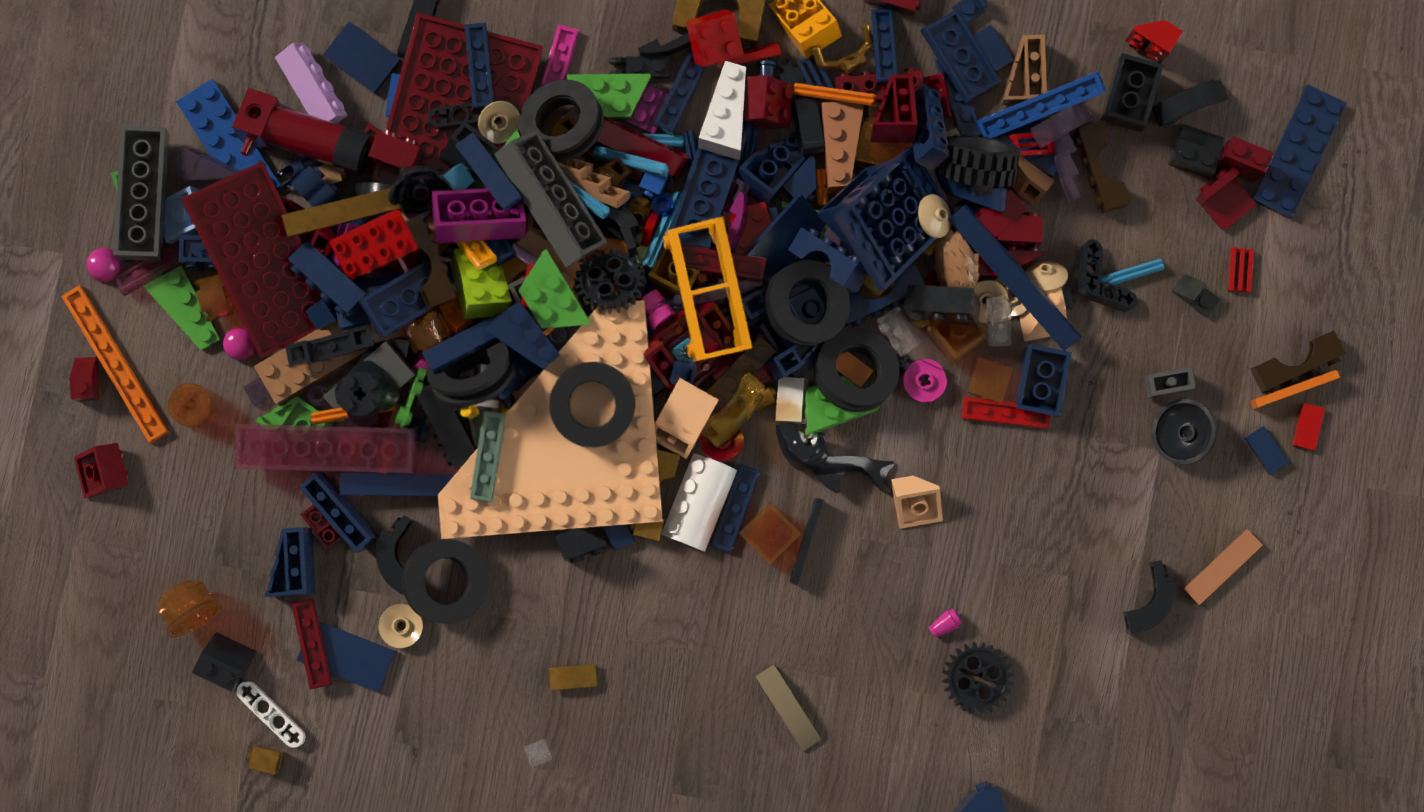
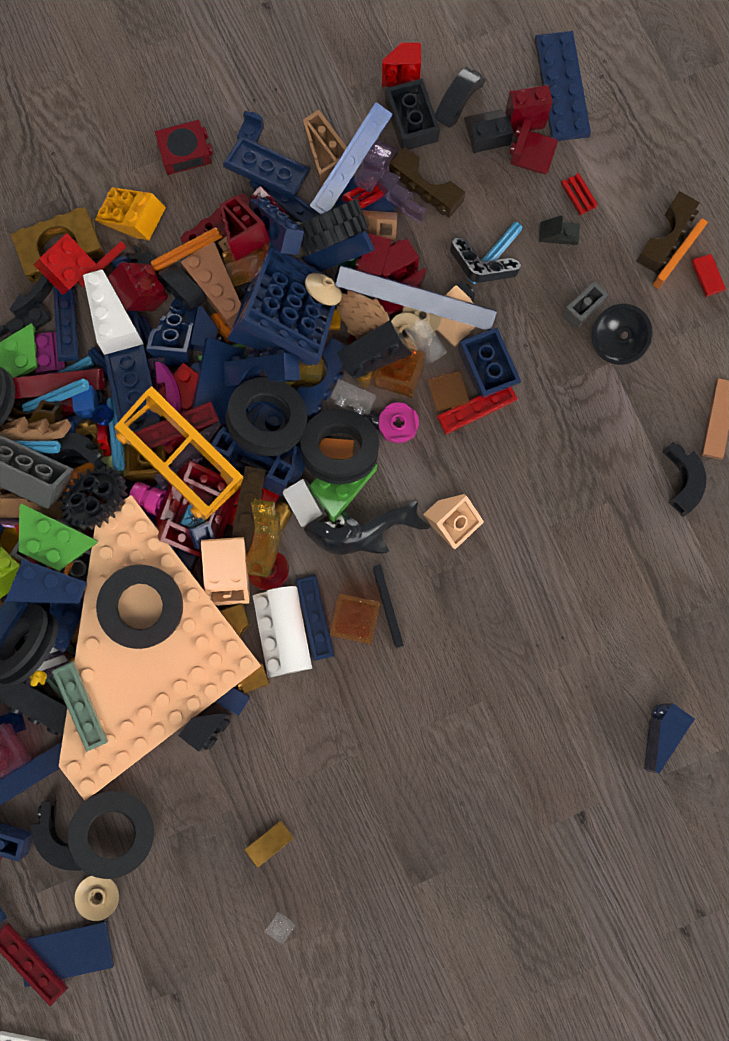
camera: 35 degrees left, 5 degrees down
(788, 707) = (461, 751): dark tan slope -> none
(808, 61) = (155, 236): dark blue tile -> none
(851, 61) = (183, 224): pearl gold piece -> none
(884, 45) = (201, 192): dark blue tile -> none
(945, 623) = (540, 600): dark pink cone -> none
(969, 696) = (597, 645): black gear -> none
(993, 48) = (288, 147): dark blue tile -> none
(1048, 275) = (441, 283): tan dish -> none
(1266, 450) = (690, 312): dark blue tile -> none

